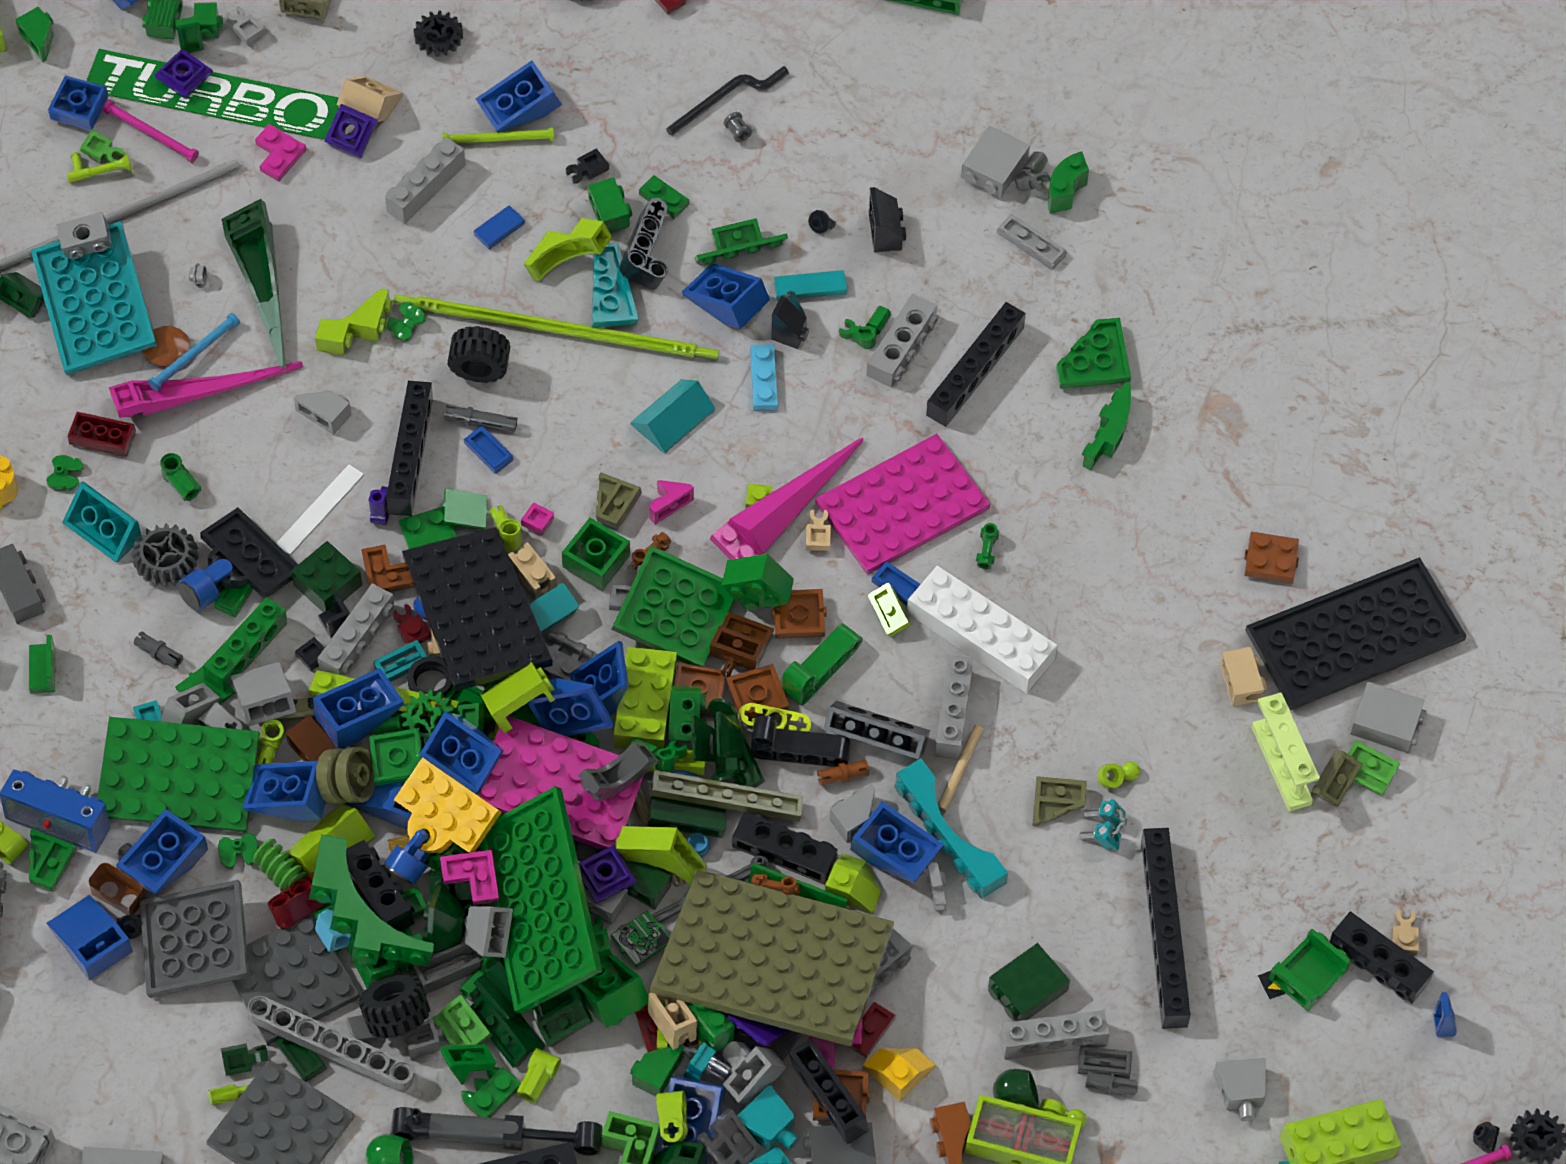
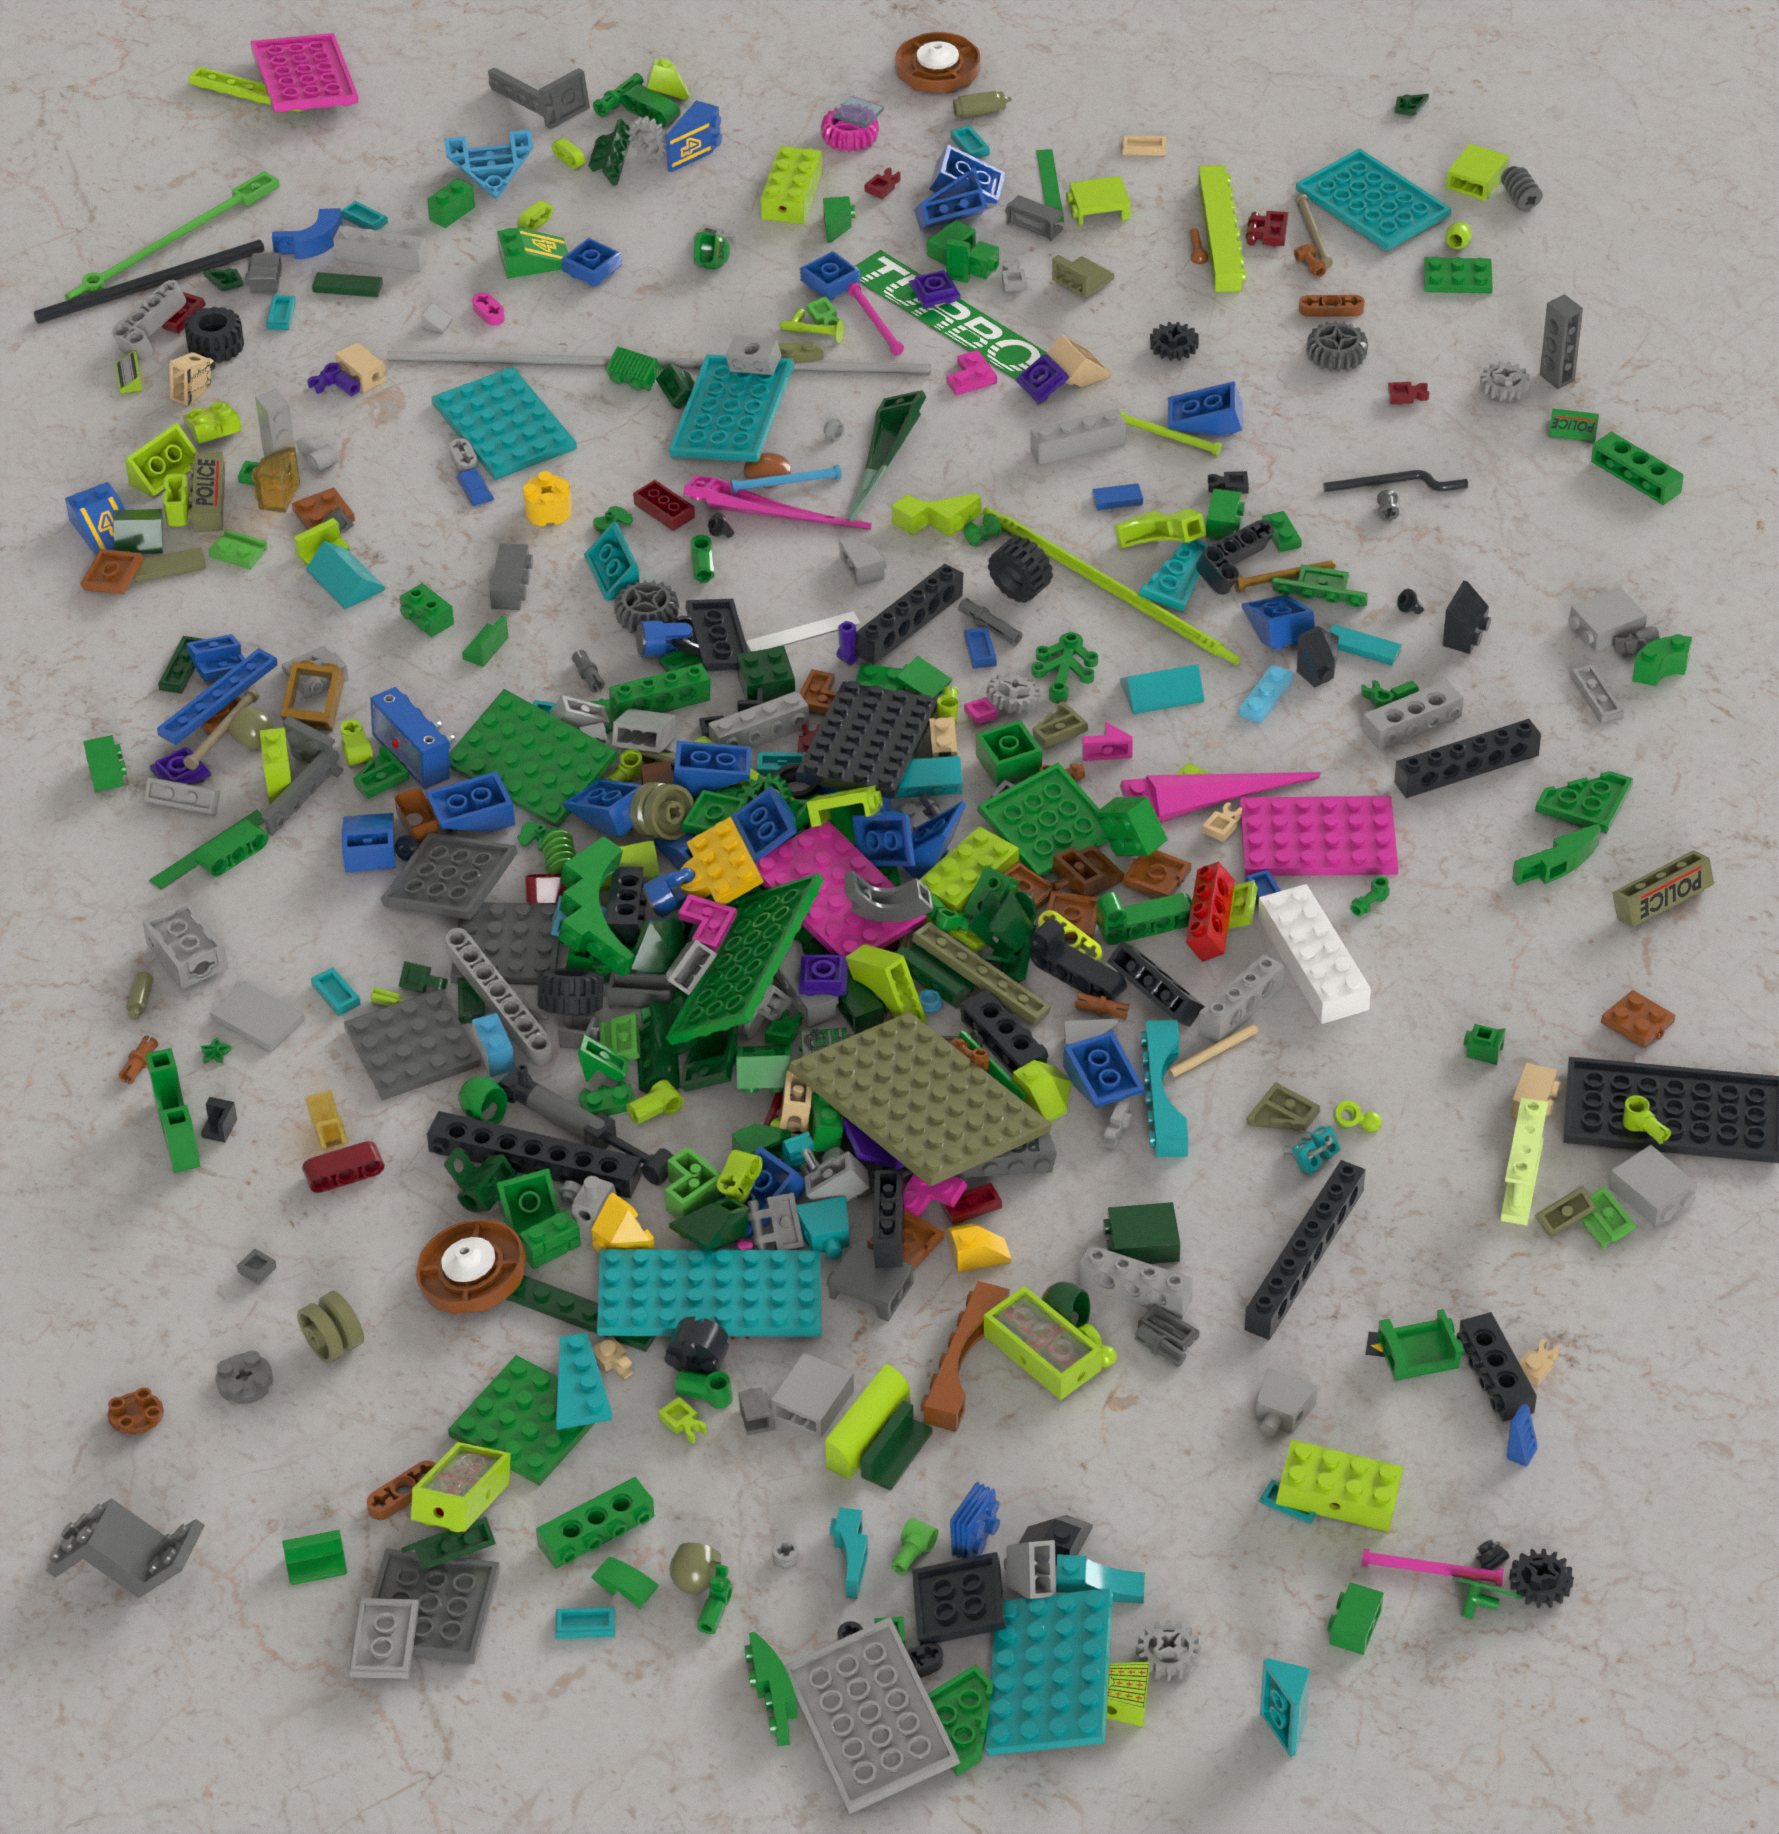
camera: 35 degrees right, 15 degrees down
(108, 202) = (801, 352): none -> olive wing
(167, 432) = (718, 525): none -> black plate
(172, 1111) = (335, 991): none -> teal tile
(358, 1093) = (493, 1044): none -> dark azure brick
(554, 487) = (1013, 693): none -> light grey gear
(575, 429) = (1070, 644): none -> green plant
(697, 242) = (1242, 583): none -> pearl gold bar
(872, 631) = (1210, 911): none -> red brick
(1173, 653) = (1484, 1043): none -> green window
(1215, 419) = (1663, 888): none -> olive brick
(1349, 660) = (1639, 1118): none -> lime pin

